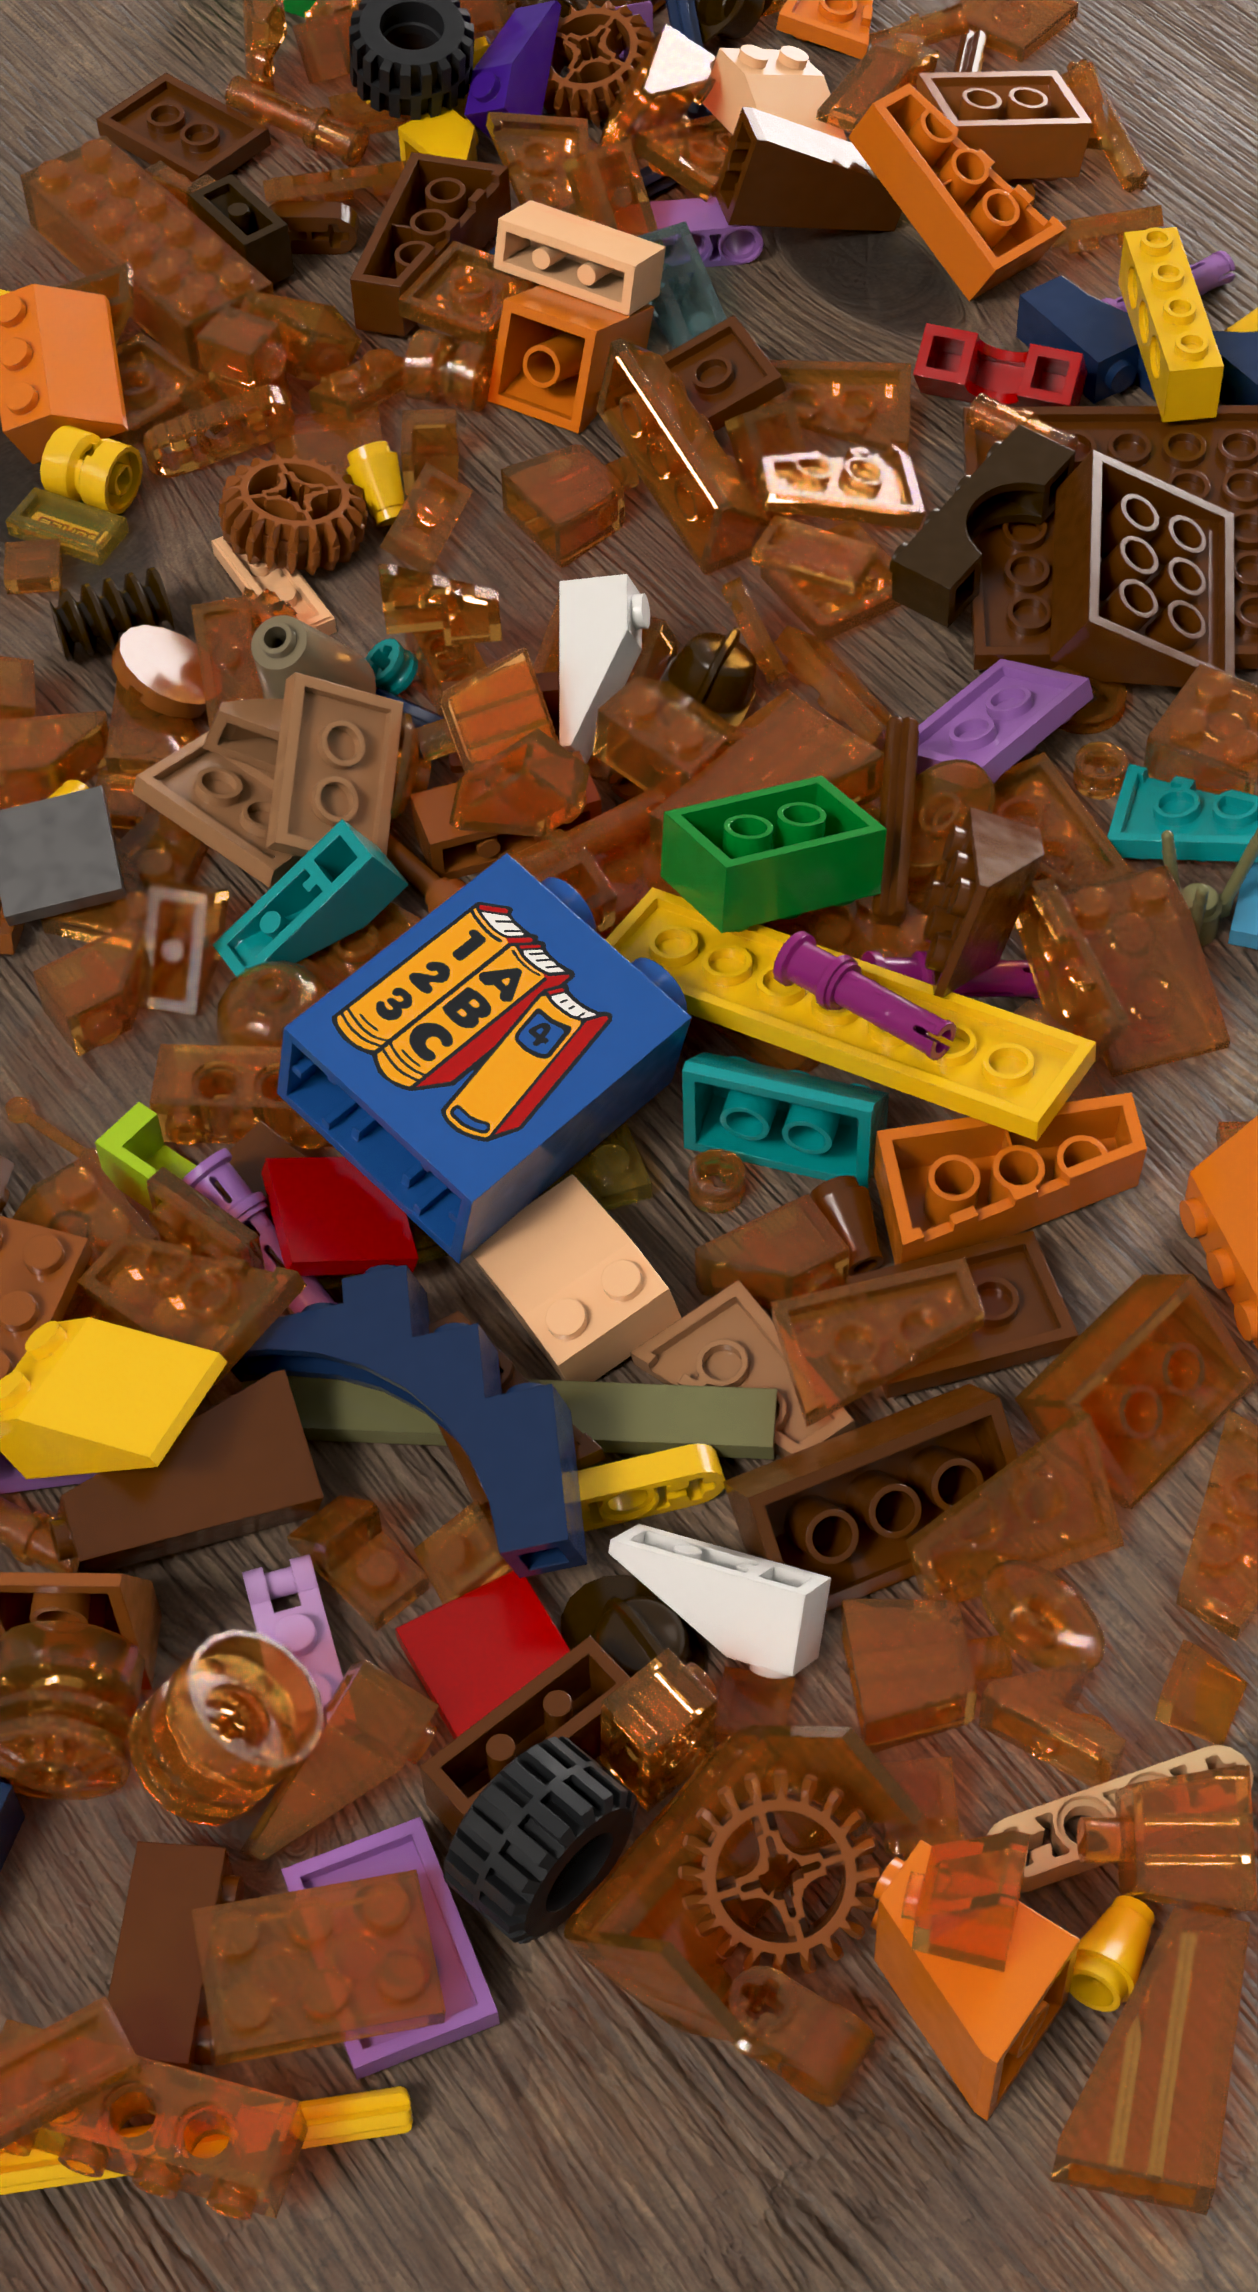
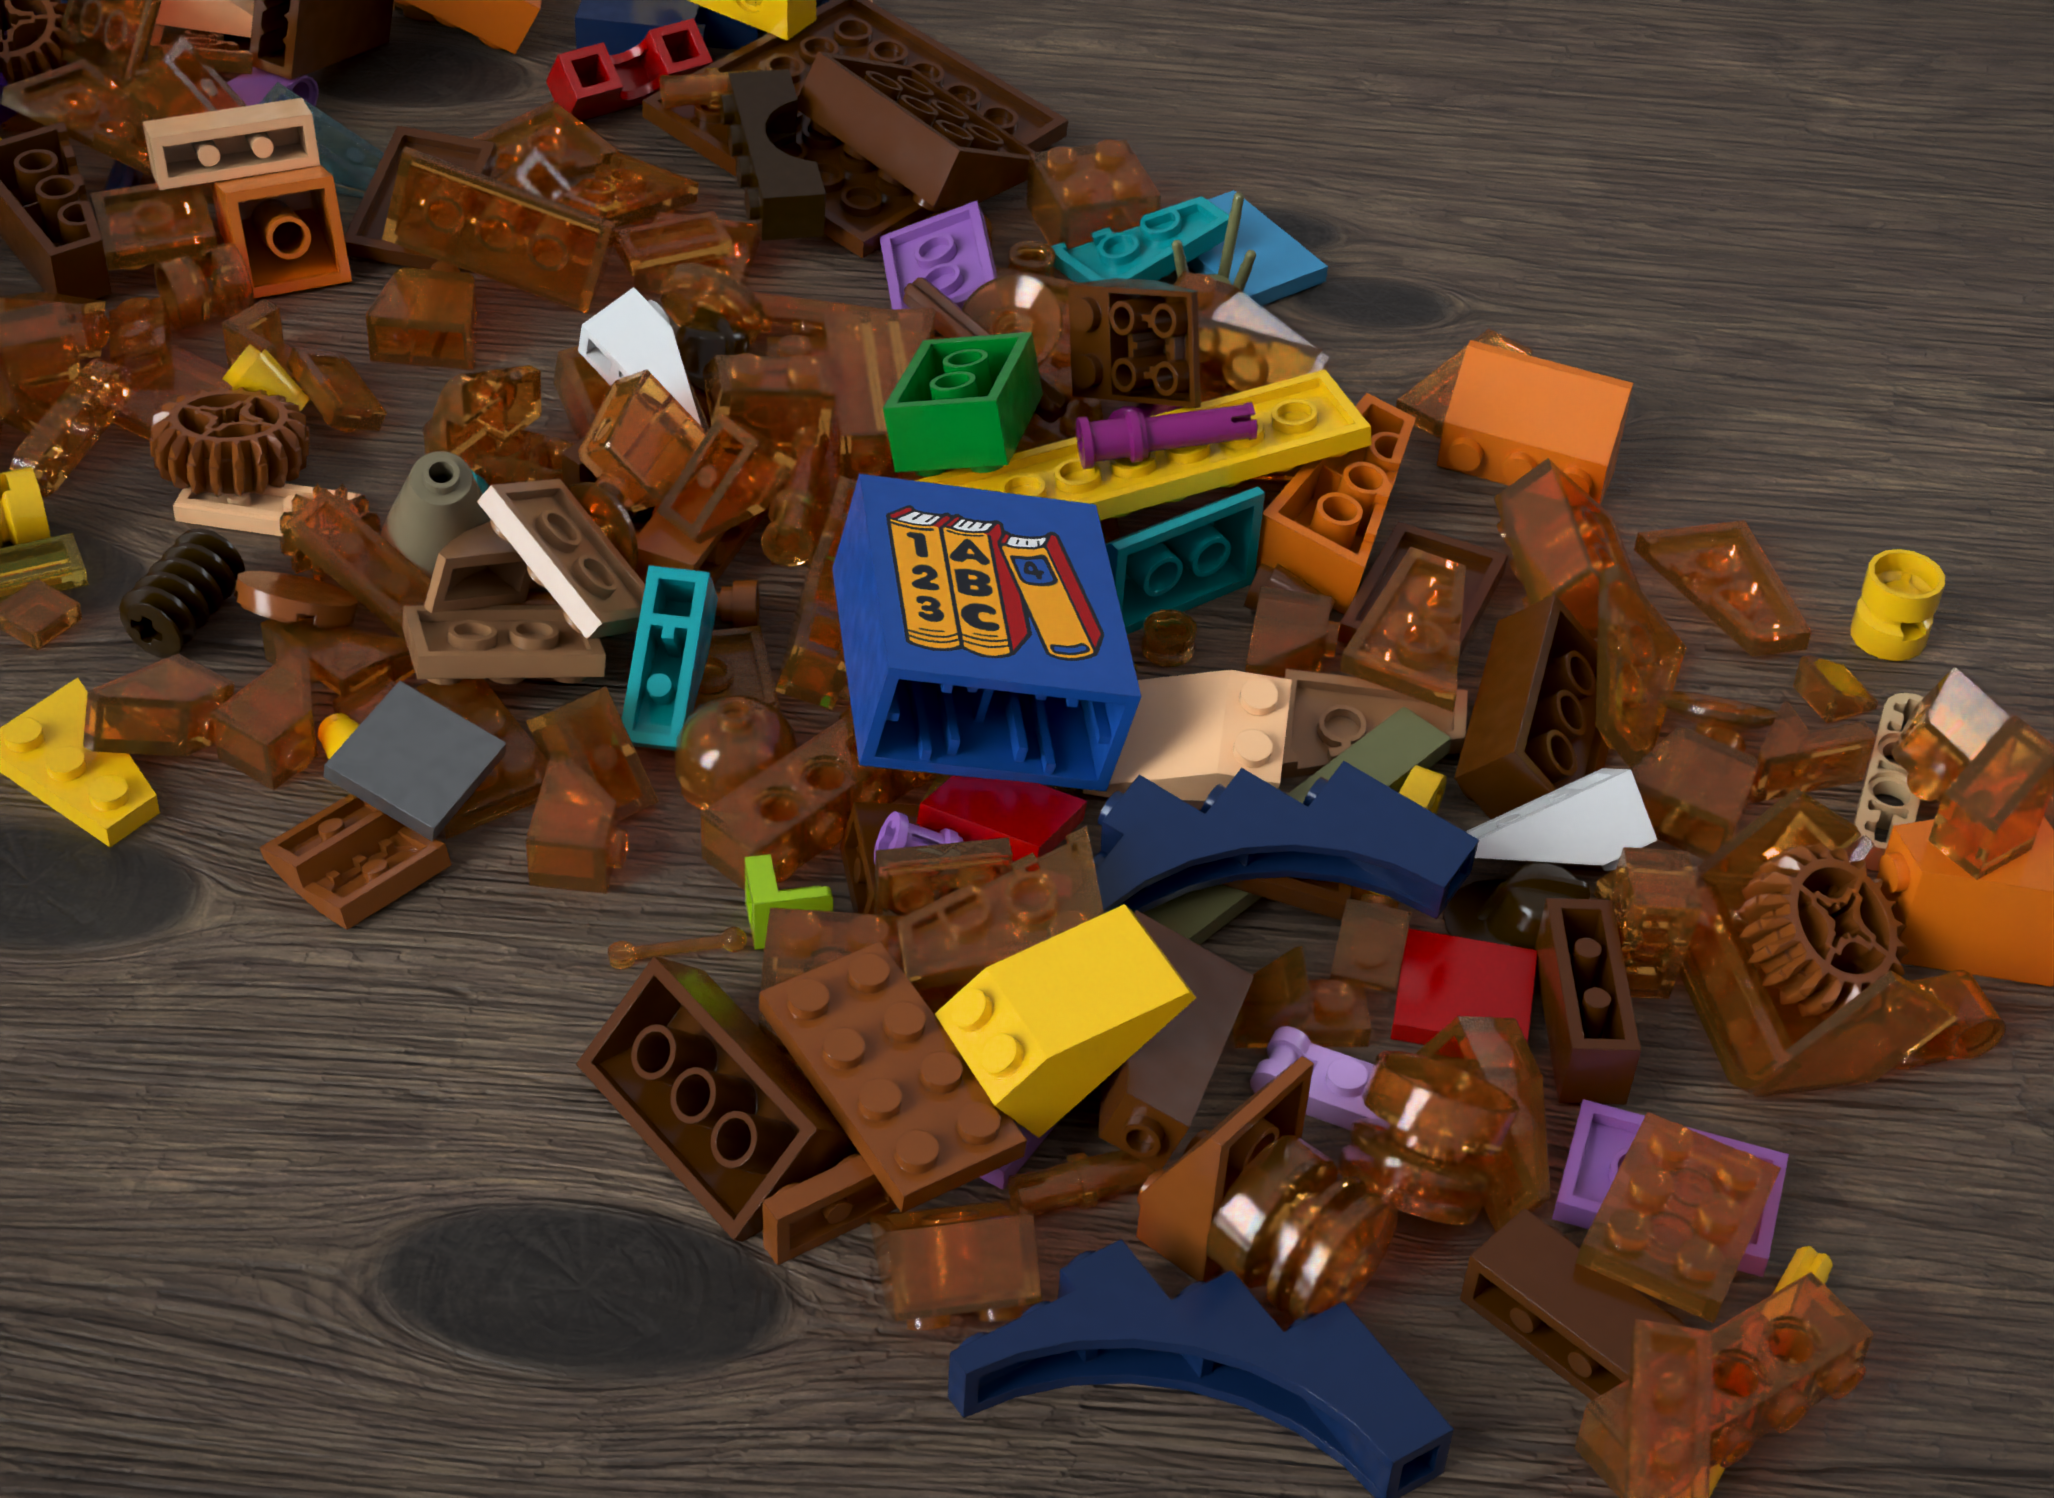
camera: 55 degrees left, 10 degrees down
(540, 1839) = (1694, 1028): black tyre -> none

